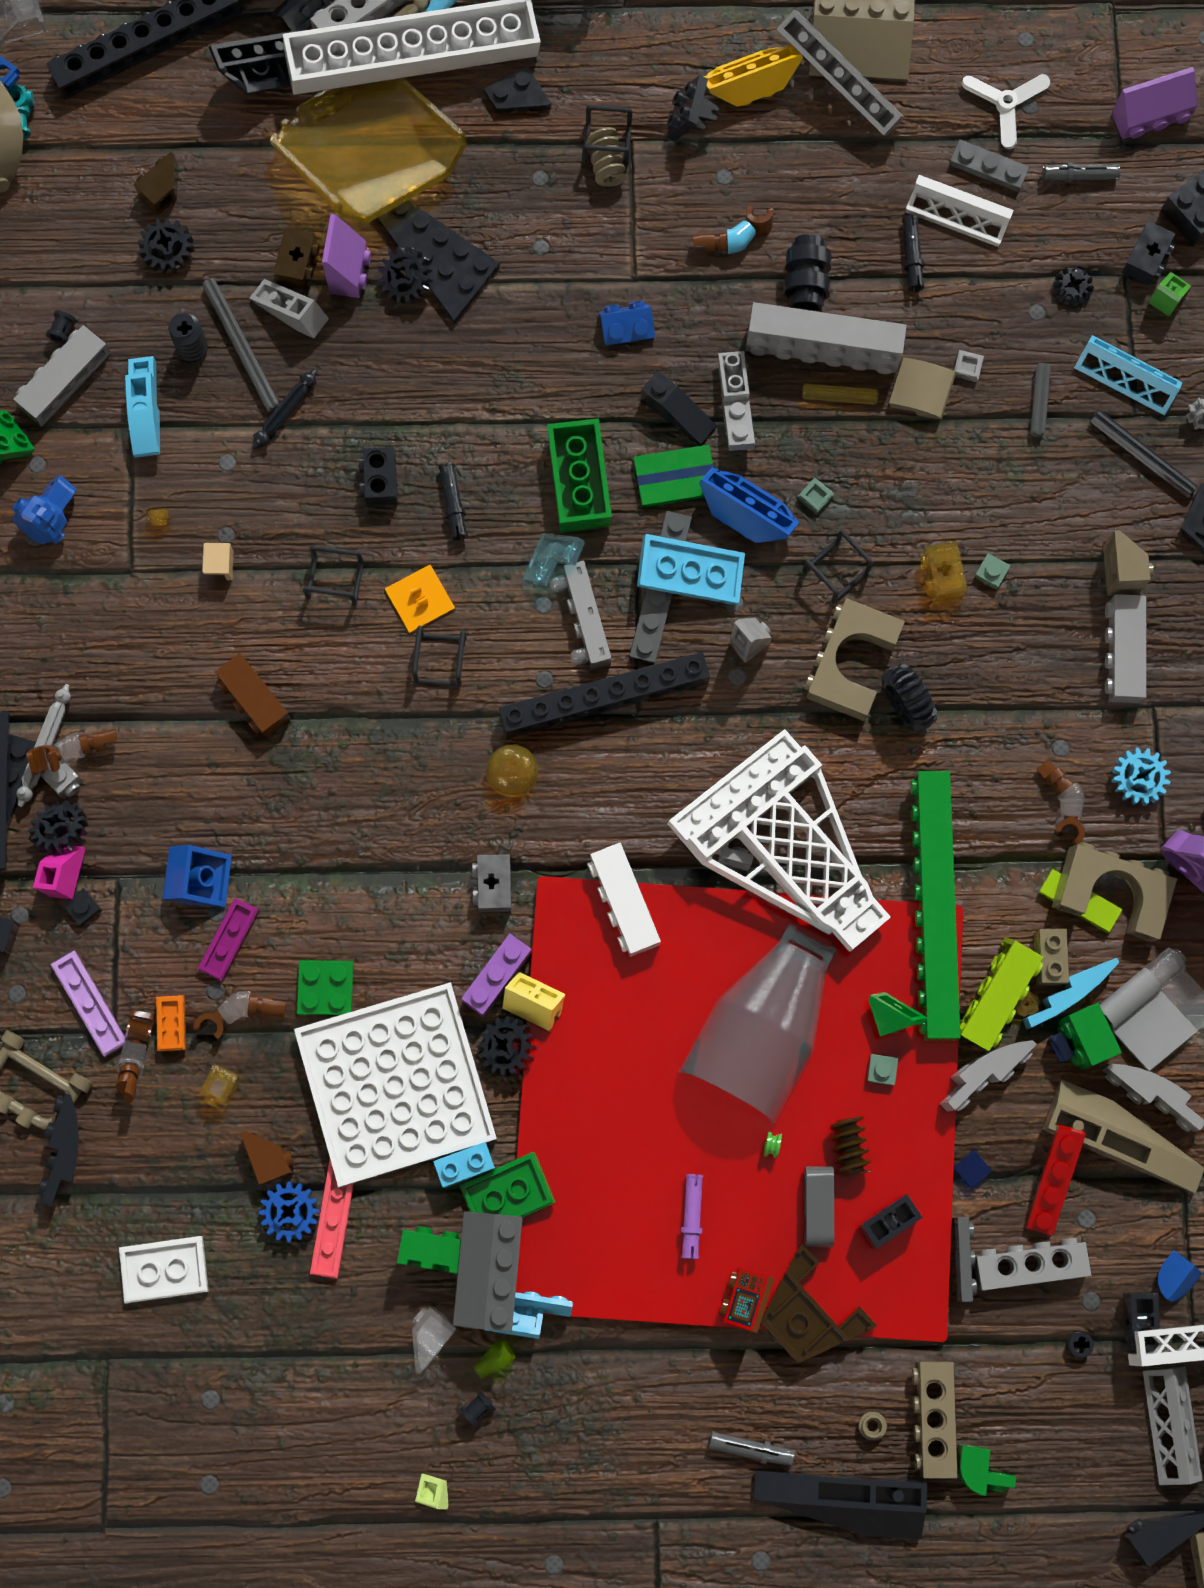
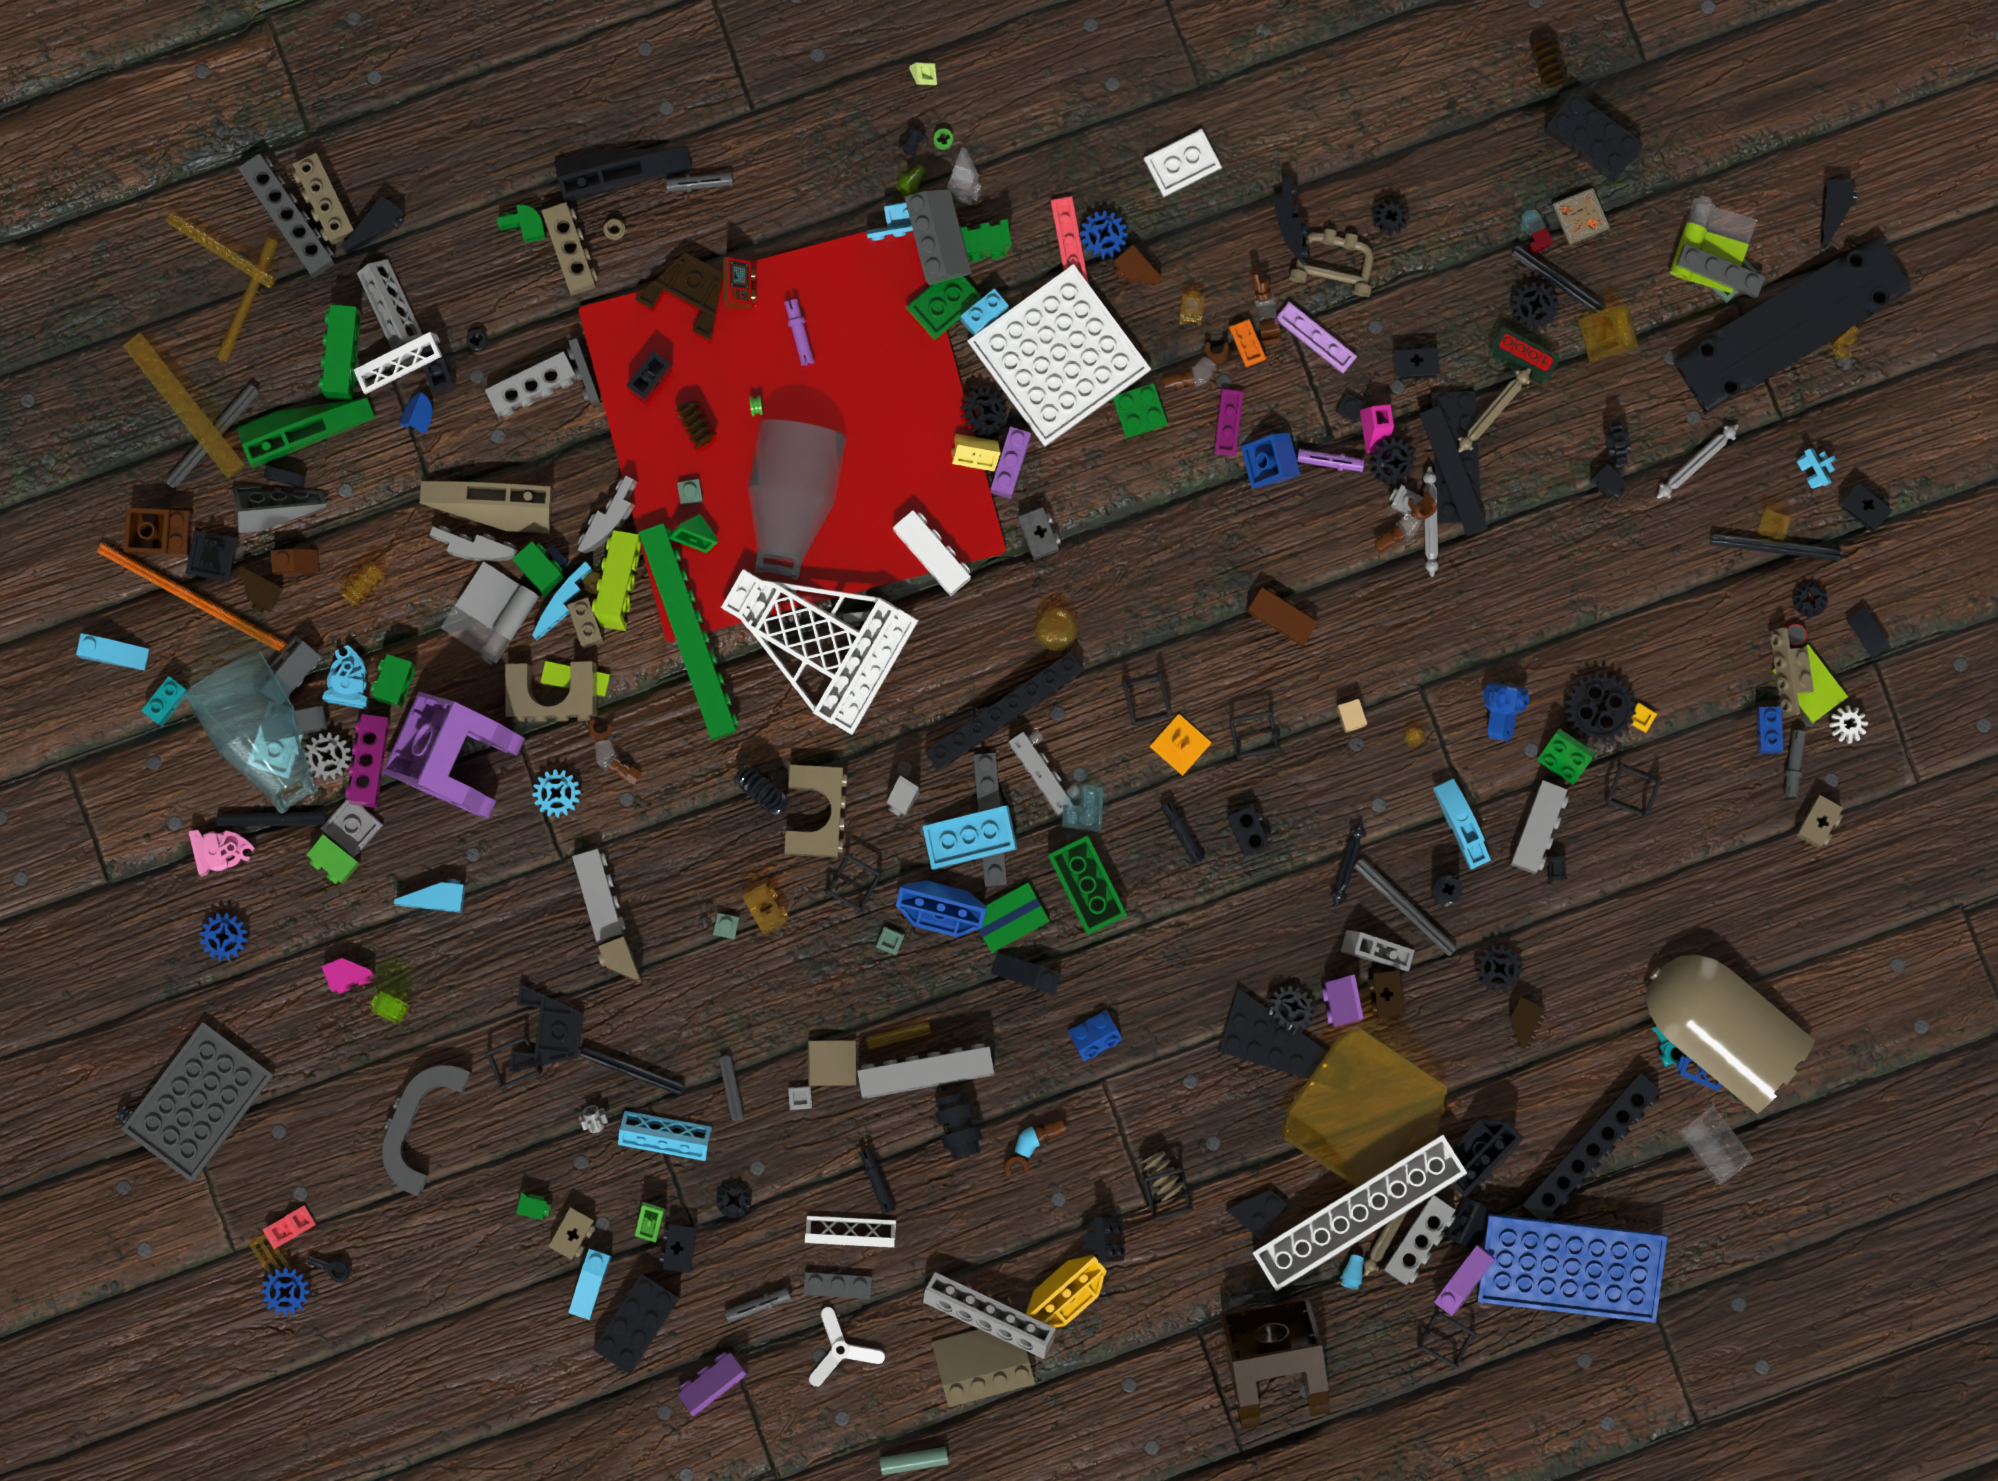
camera: 165 degrees right, 5 degrees up
(103, 839) = (1356, 463): none -> medium lavender pin
(444, 1407) = (937, 135): none -> bright green bush
(736, 401) = (981, 996): light grey slope -> none
(819, 1206) = (706, 371): dark grey beam -> none
(972, 1169) = (597, 442): clear blue tile -> none
(1055, 1179) = (532, 452): red plate -> none

